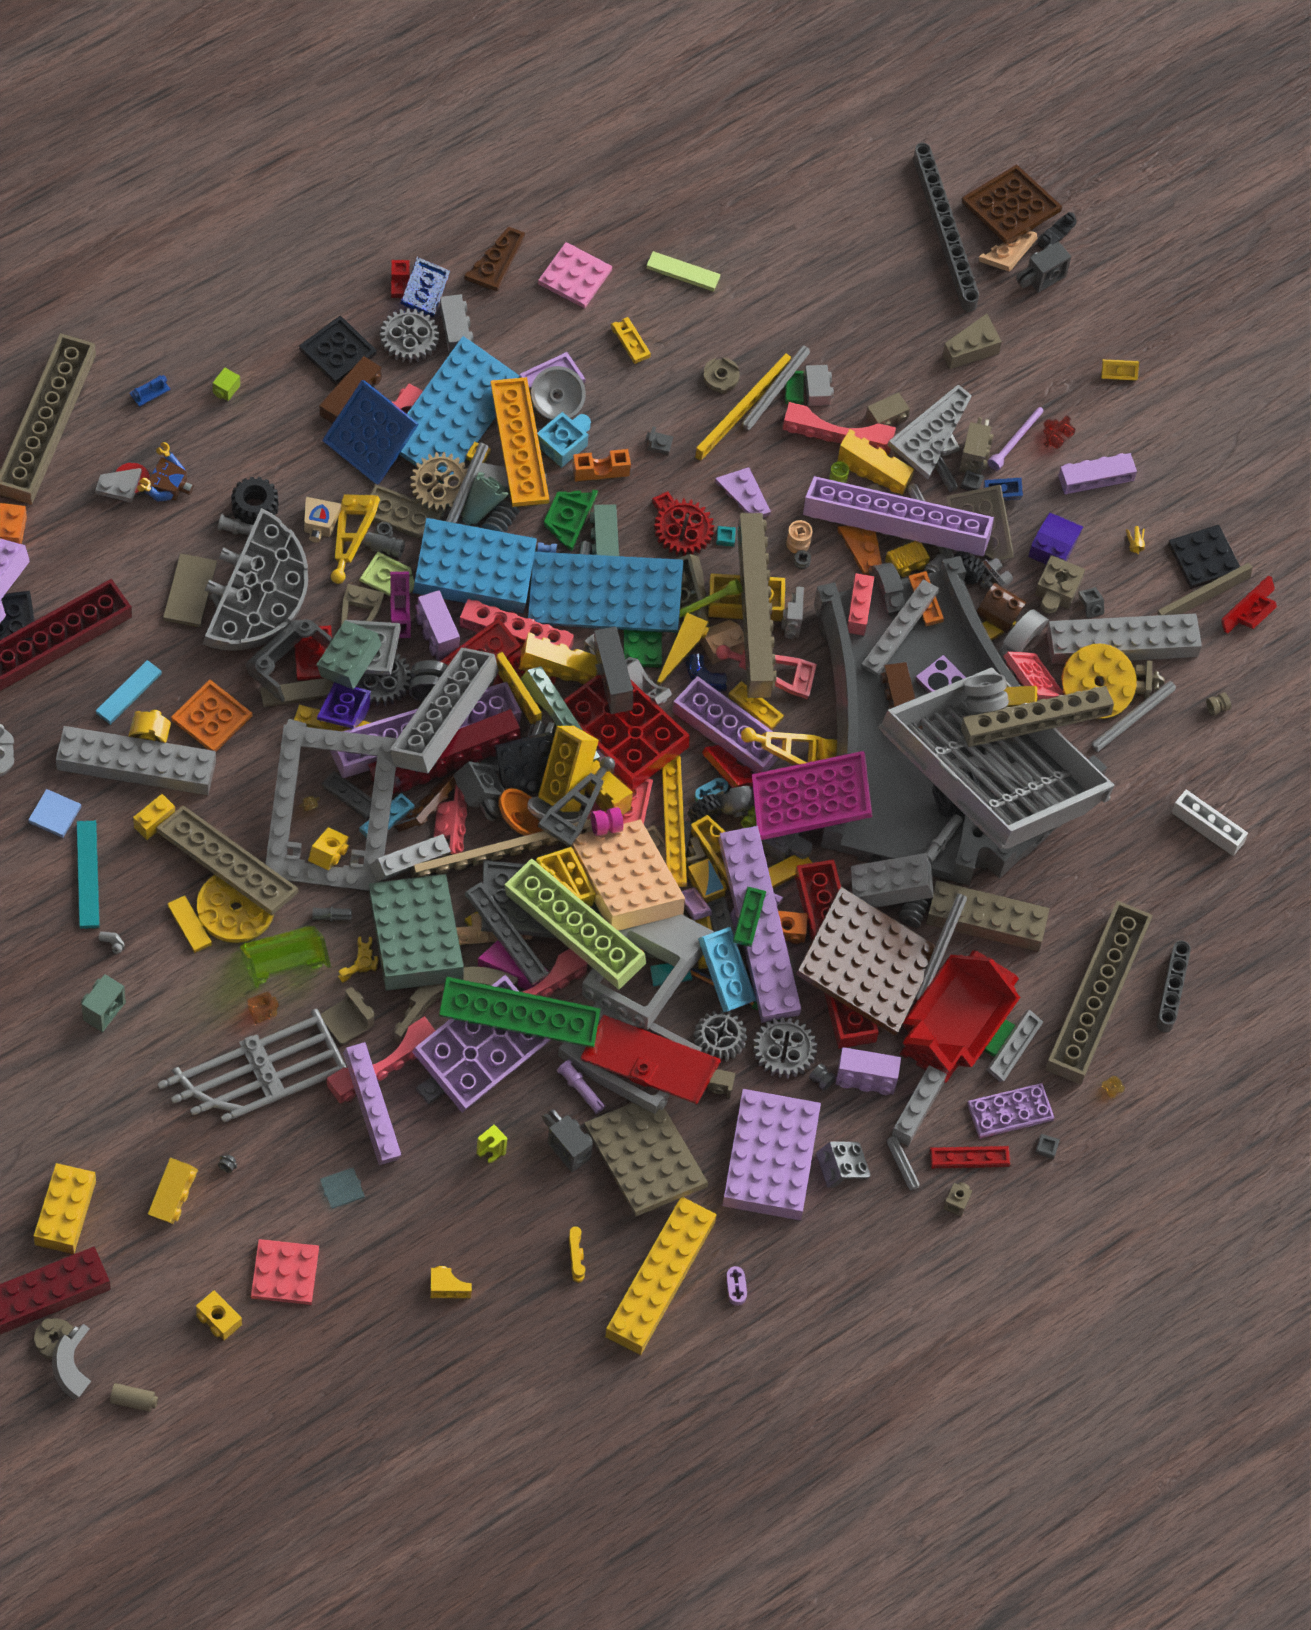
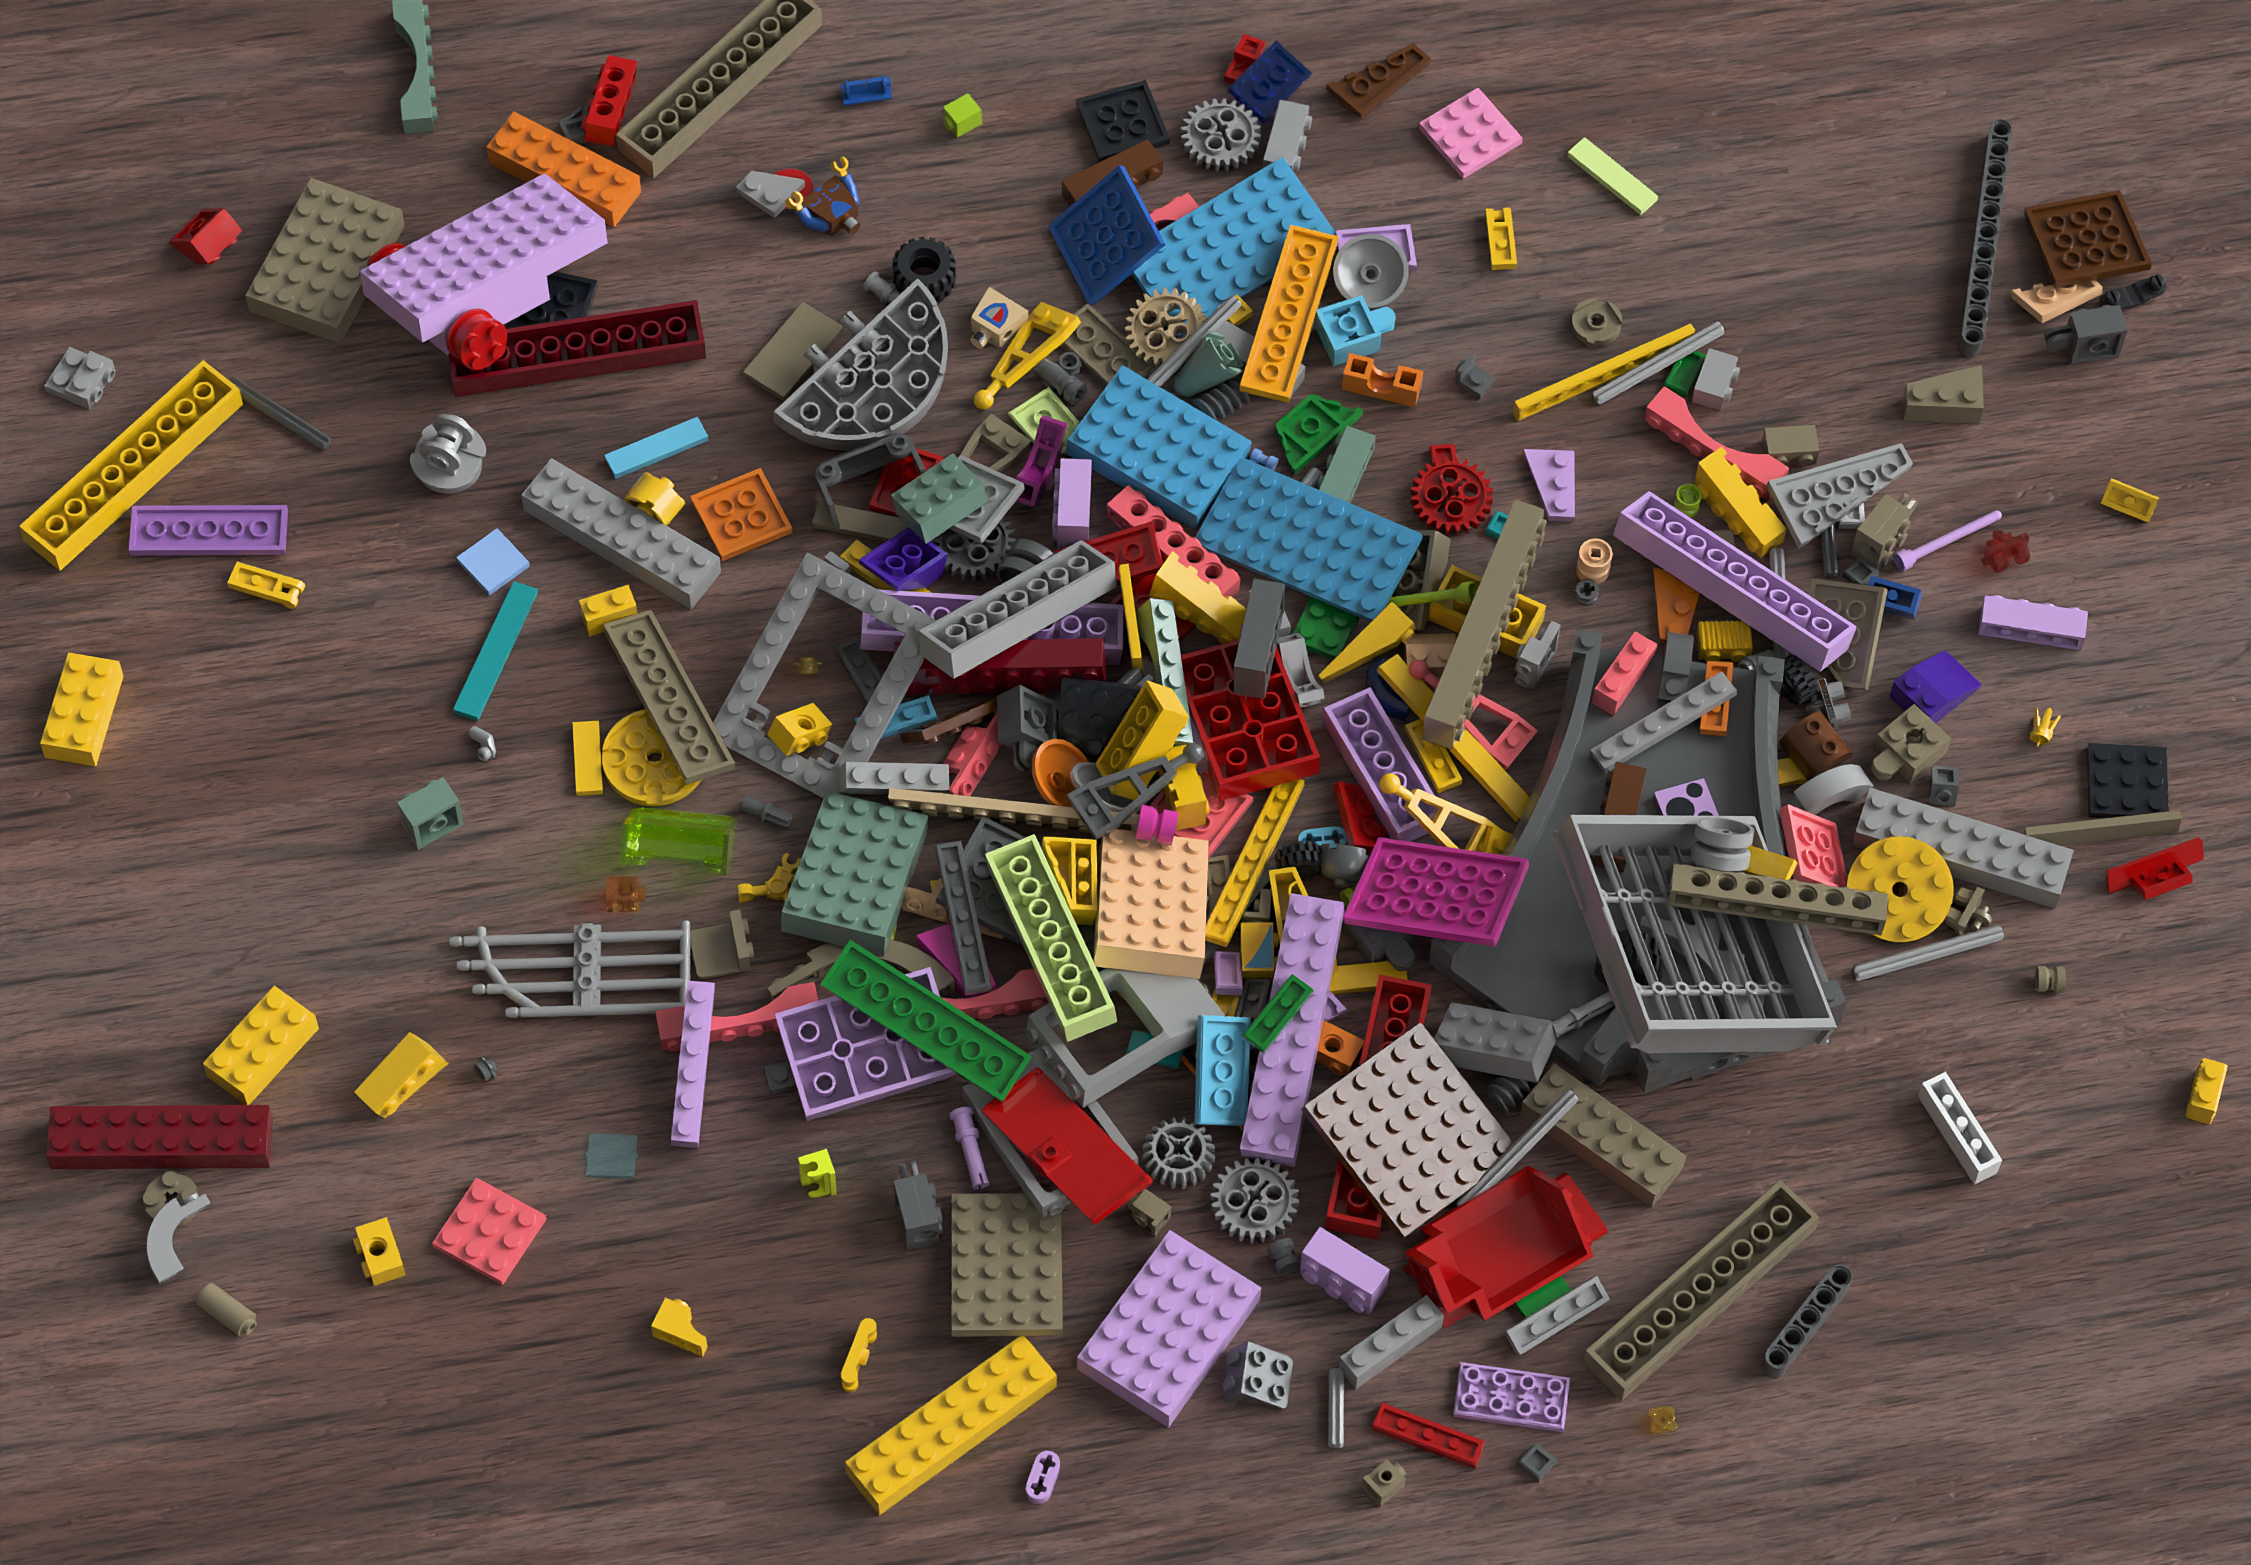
camera: 30 degrees right, 0 degrees up
(781, 695) = (1468, 750): none -> yellow tile

